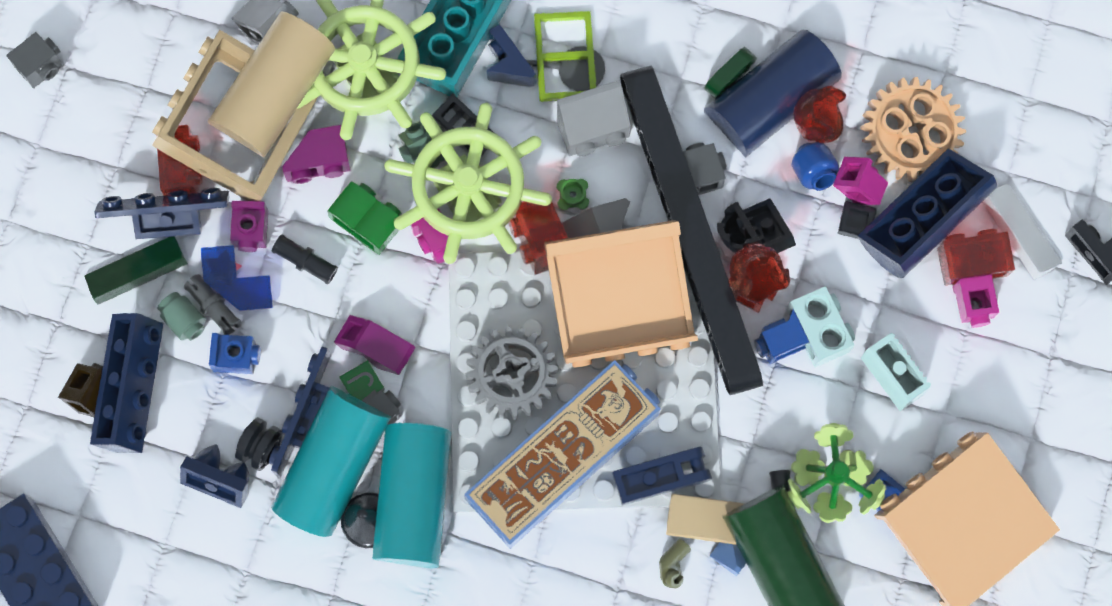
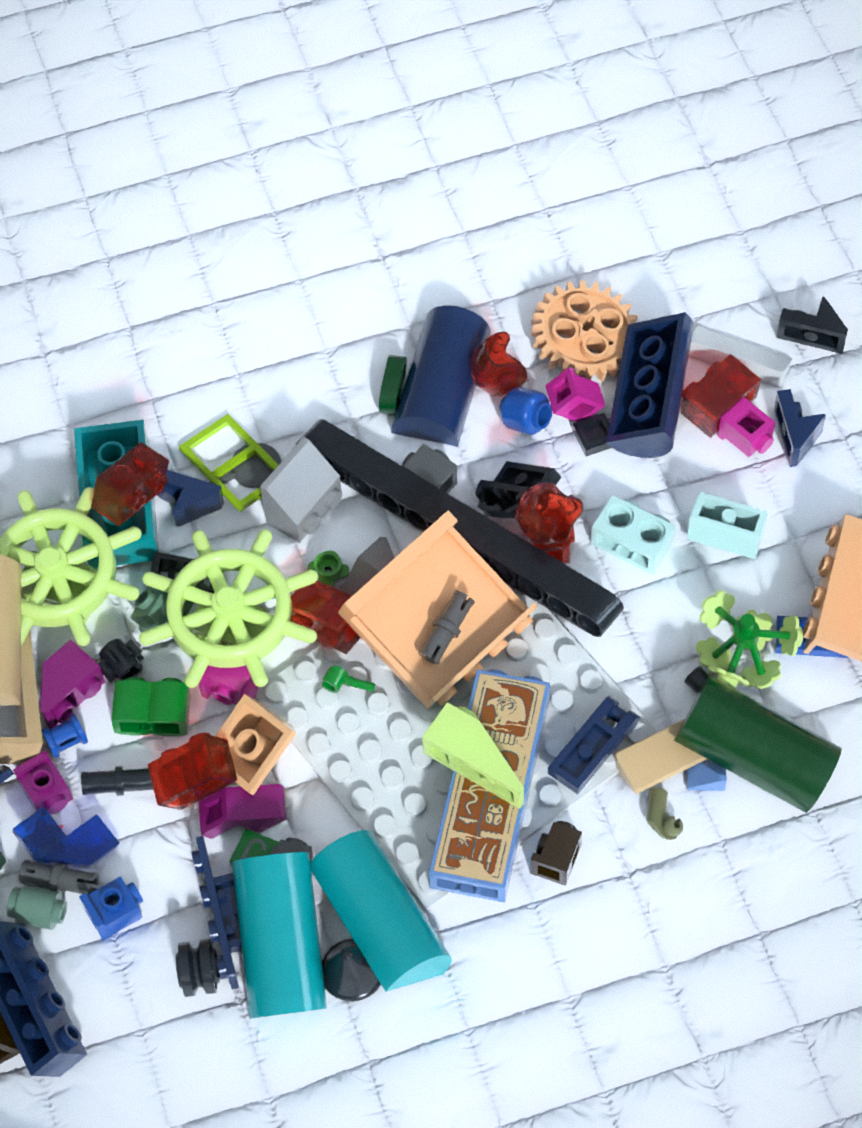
camera: 30 degrees left, 15 degrees down
(204, 475) = (172, 1034): dark blue tile -> none
(289, 196) = (64, 735): none -> blue bush
(356, 291) = (192, 771): none -> clear red brick
(368, 165) = (120, 660): none -> black gear
(413, 299) = (255, 741): none -> light nougat slope
(460, 33) = (130, 483): none -> clear red brick
(513, 289) = (337, 676): none -> green hand
(523, 366) = (381, 728): light grey gear -> none
(556, 416) = (465, 747): none -> yellowish green slope
(575, 538) = (557, 853): none -> dark brown brick
(616, 310) = (446, 627): none -> dark grey pin
(781, 339) = (609, 562): blue window -> none
(1012, 331) = (796, 431): none -> dark blue slope

